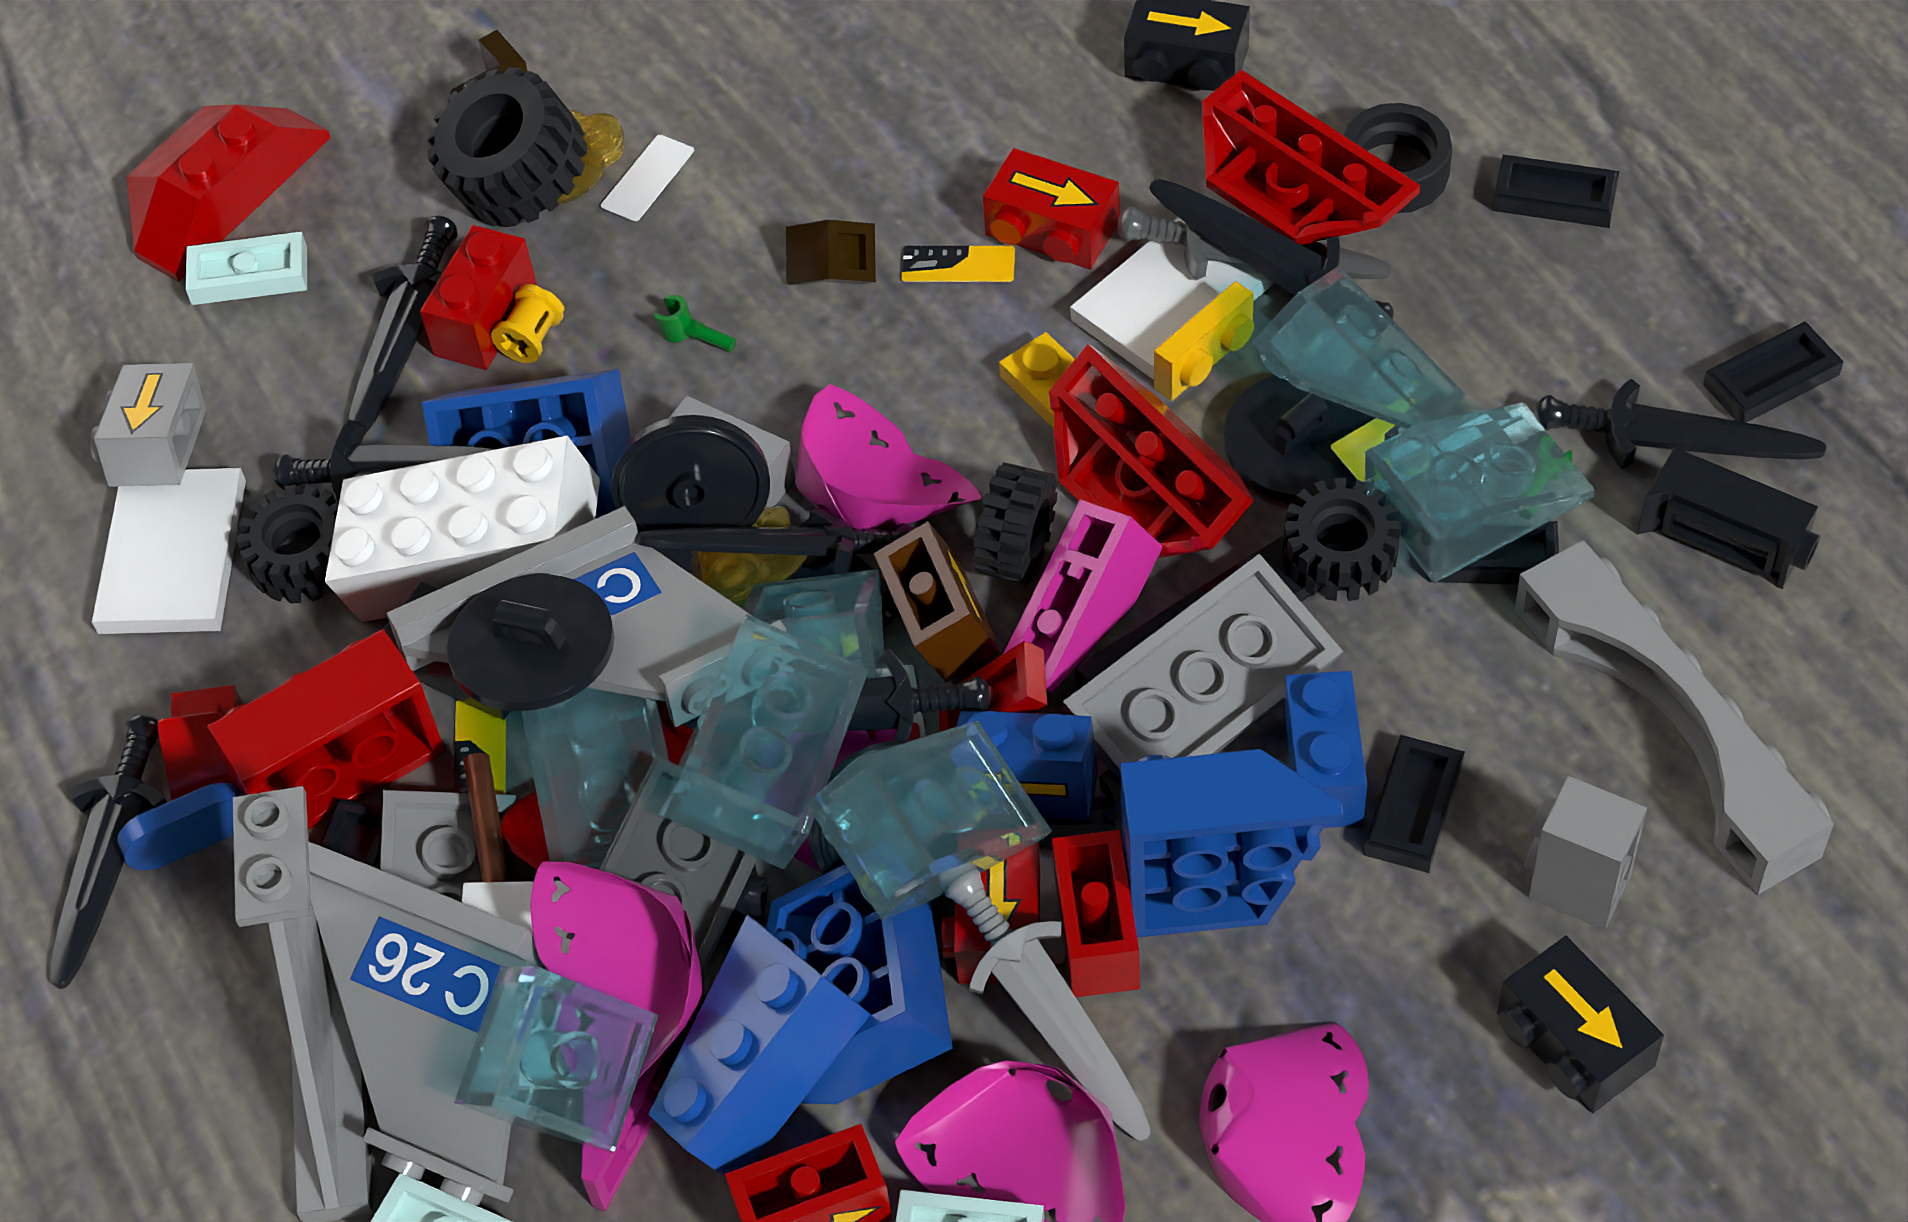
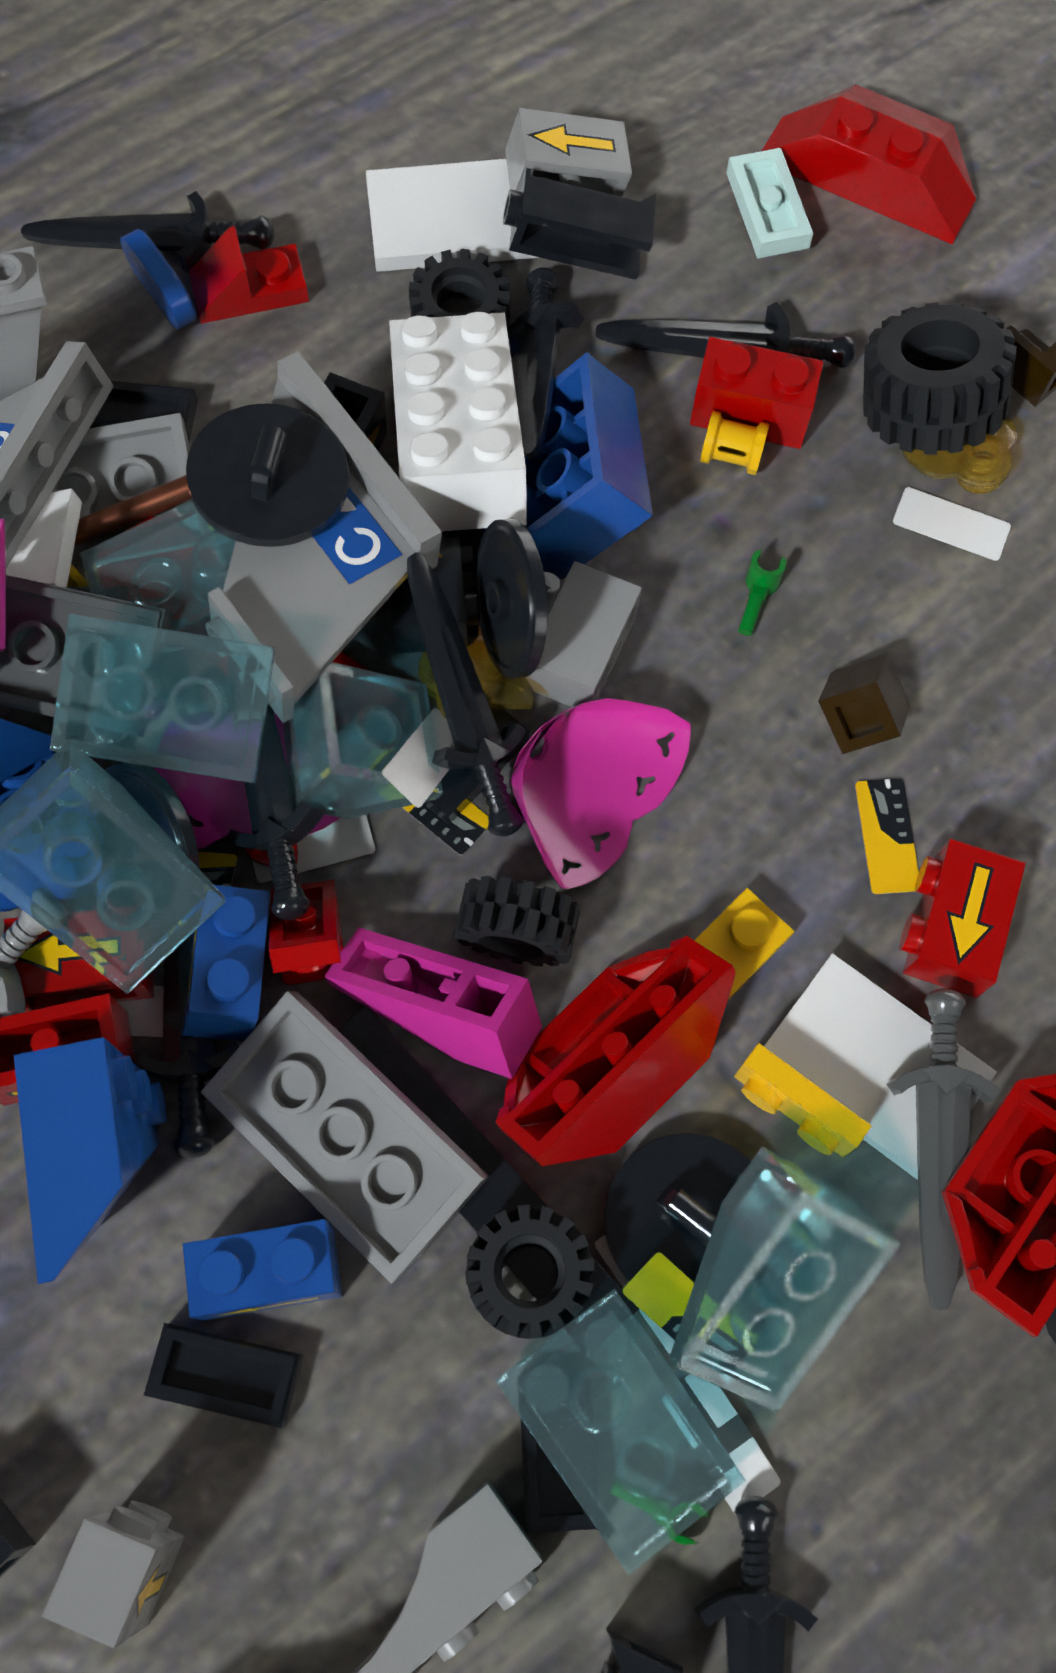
camera: 75 degrees right, 15 degrees up
(237, 420) = (579, 225): none -> black window
(333, 729) = (211, 333): red brick -> none
(856, 583) = (410, 768): none -> white sticker
(936, 602) = (416, 856): reddish brown brick -> none
(1254, 244) = (926, 1161): black sword -> none

